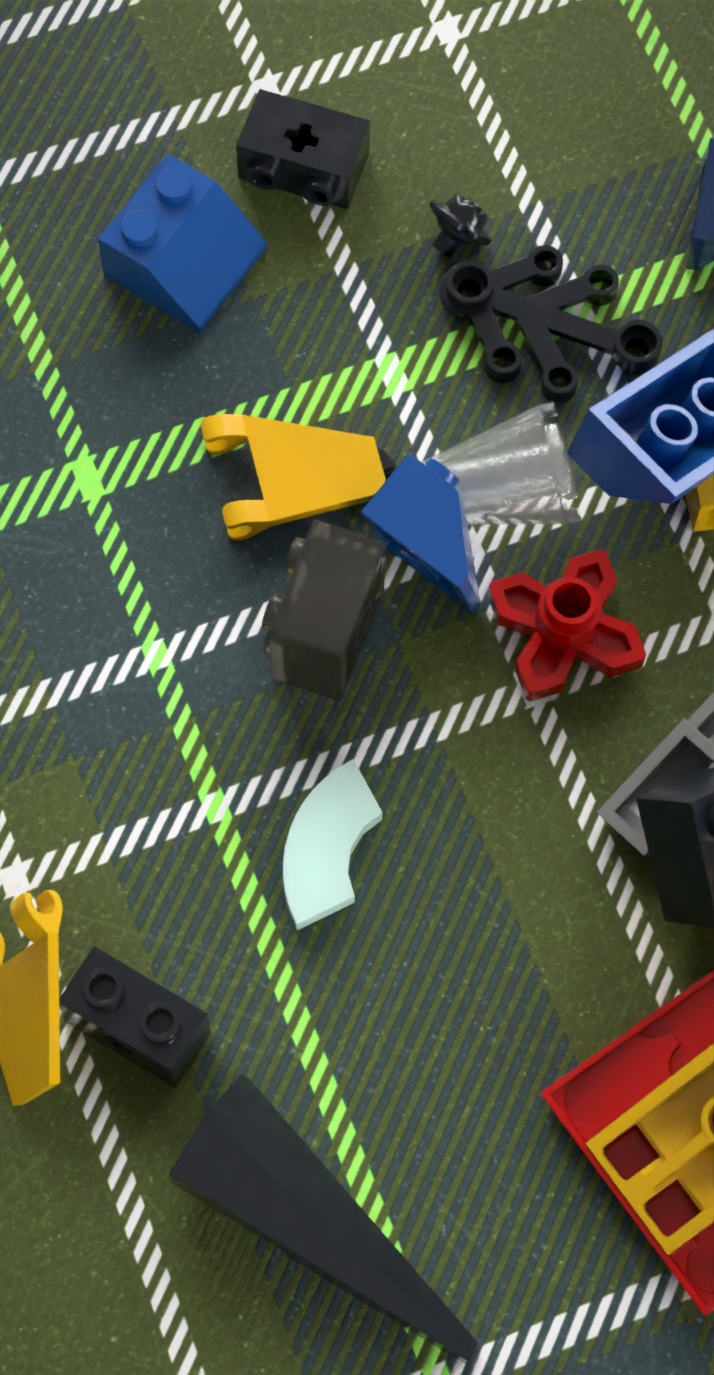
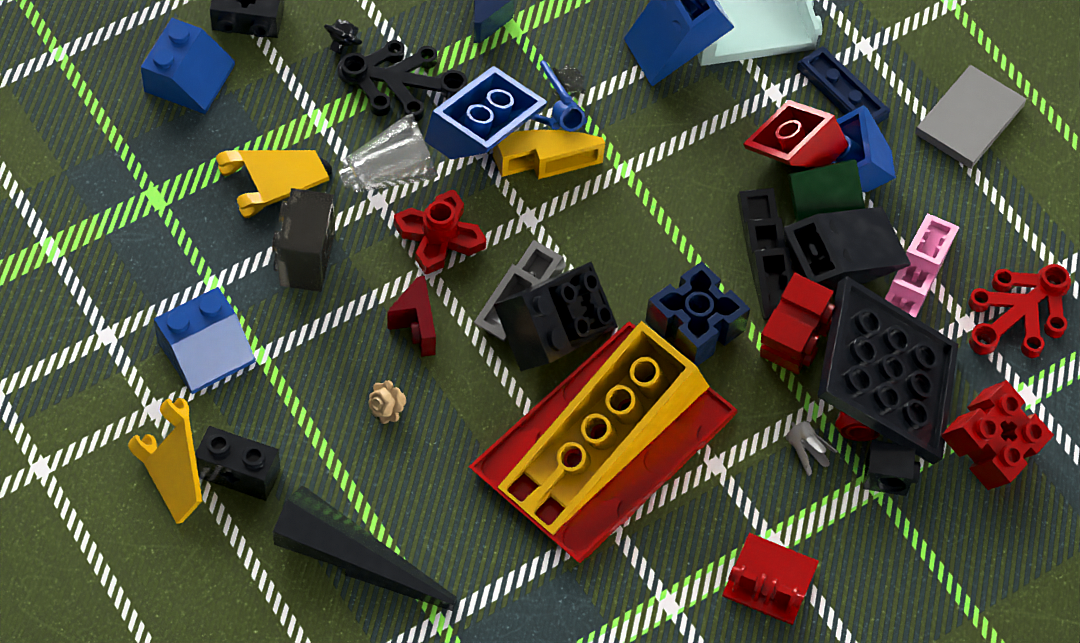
camera: 15 degrees left, 10 degrees down
(120, 769) = (204, 340): none -> slope
(322, 843) = (325, 362): light aqua tile -> none
(416, 941) = (386, 402): none -> tan plant
(427, 527) = (354, 189): blue slope -> none
(498, 770) = (414, 311): none -> dark red slope

